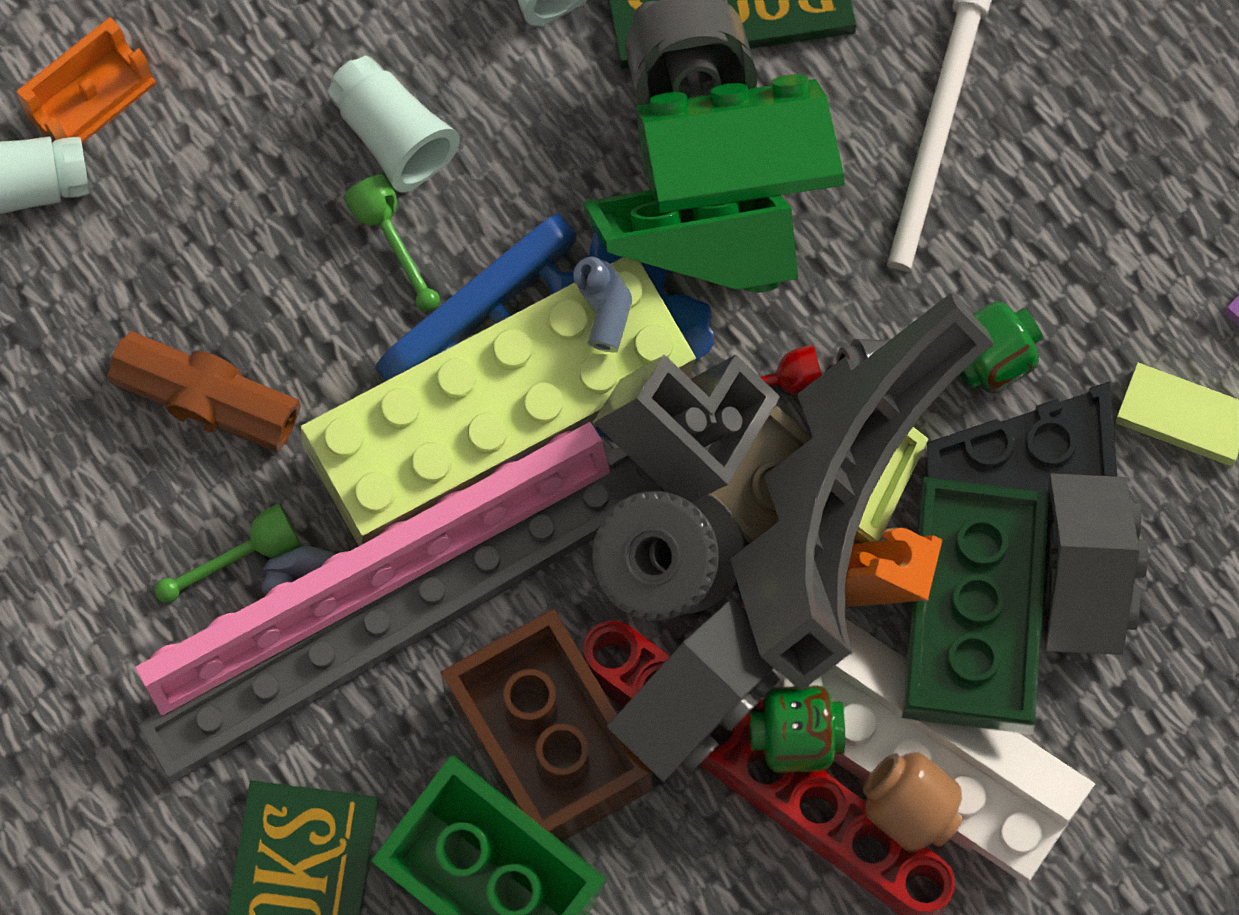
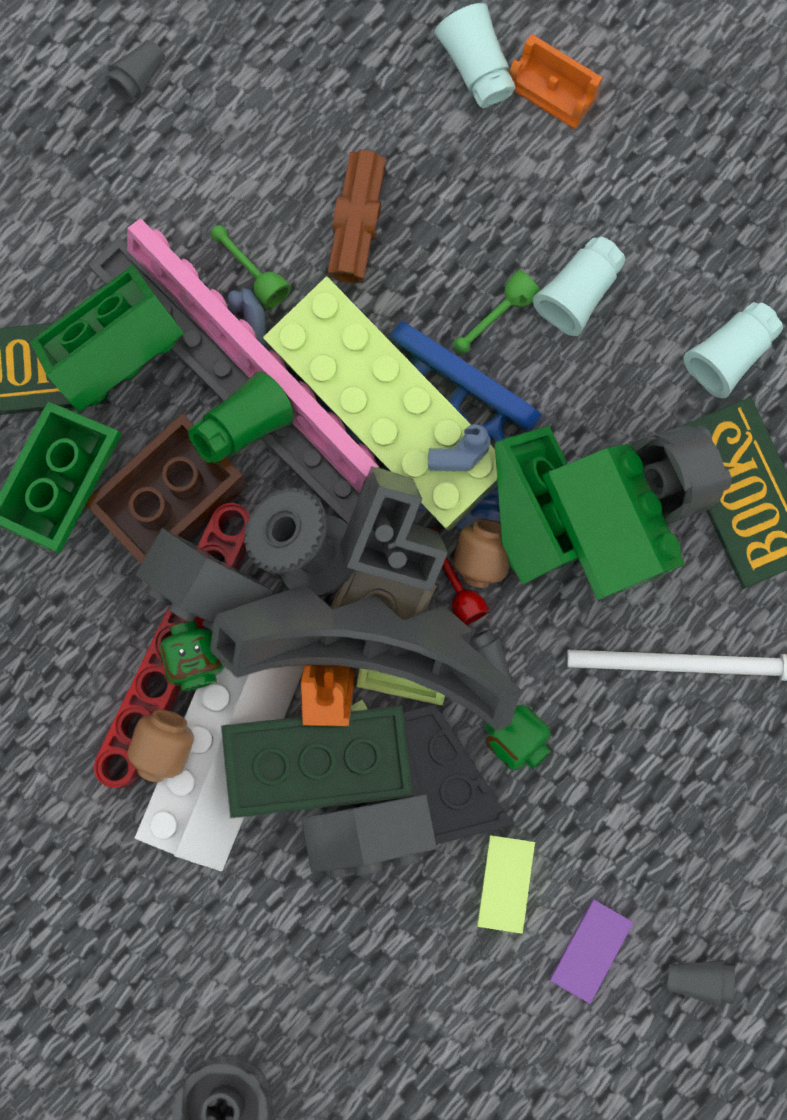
camera: 80 degrees right, 10 degrees up
(292, 764) = (106, 339): none -> green slope
(472, 585) = (242, 418): none -> green plant
(732, 324) = (480, 554): none -> medium nougat head

